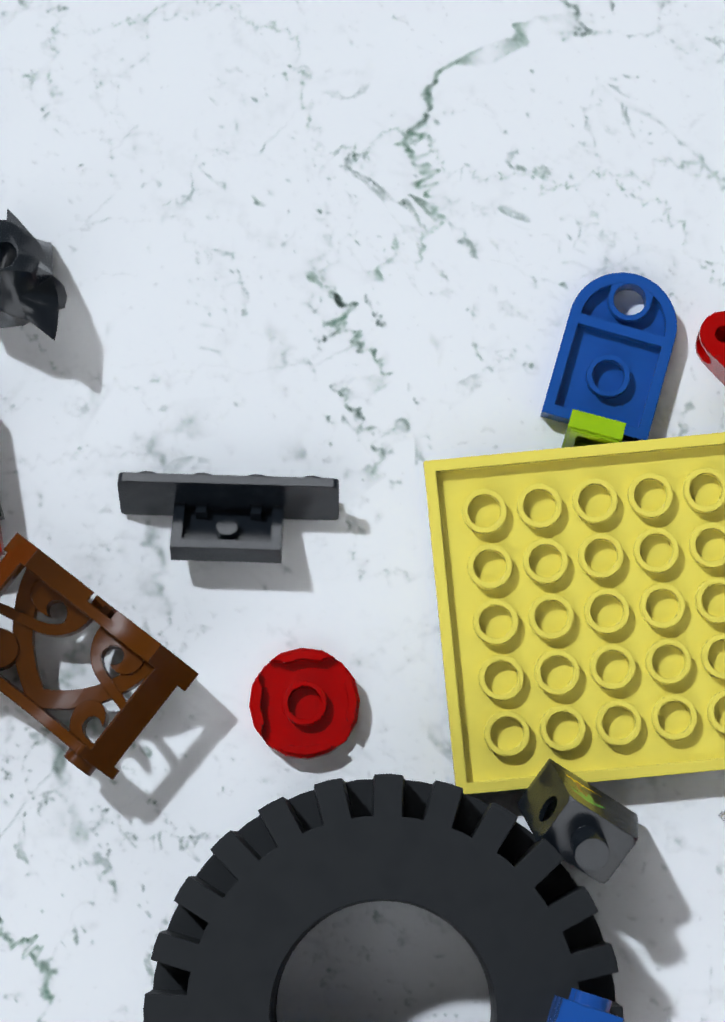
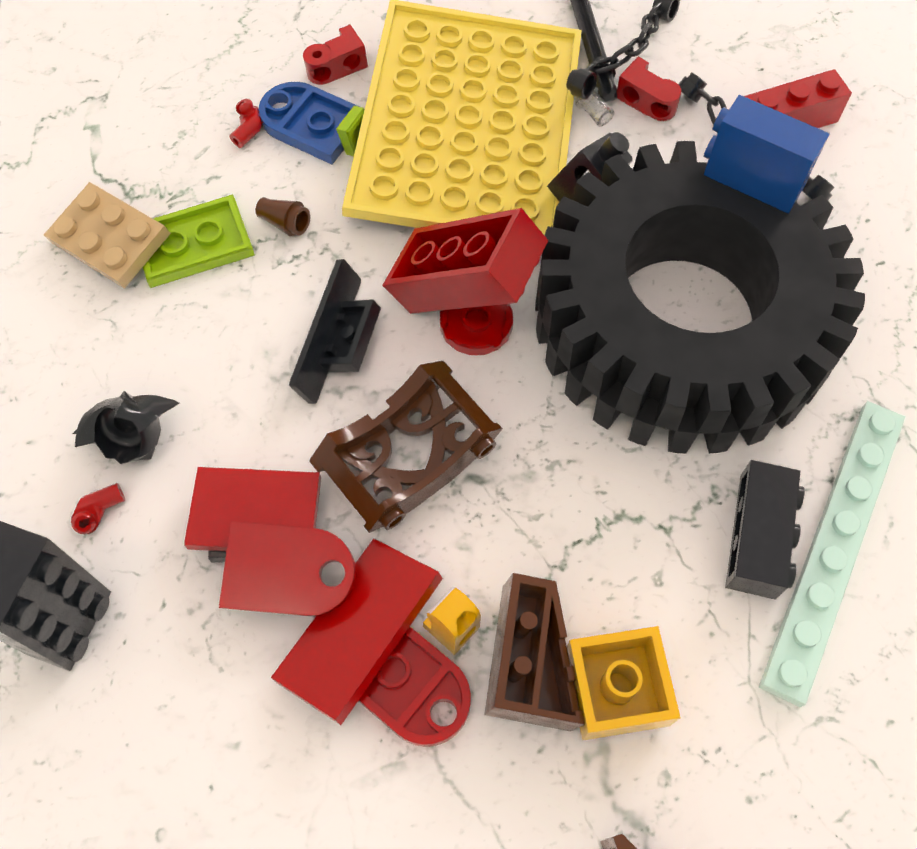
camera: 80 degrees left, 15 degrees down
(316, 137) = (107, 234): none -> tan plate
(336, 668) = (467, 262): none -> red brick
(345, 257) = (199, 241): none -> lime tile
(413, 376) = (285, 215): none -> reddish brown cone
(579, 269) = (249, 121): none -> red arm

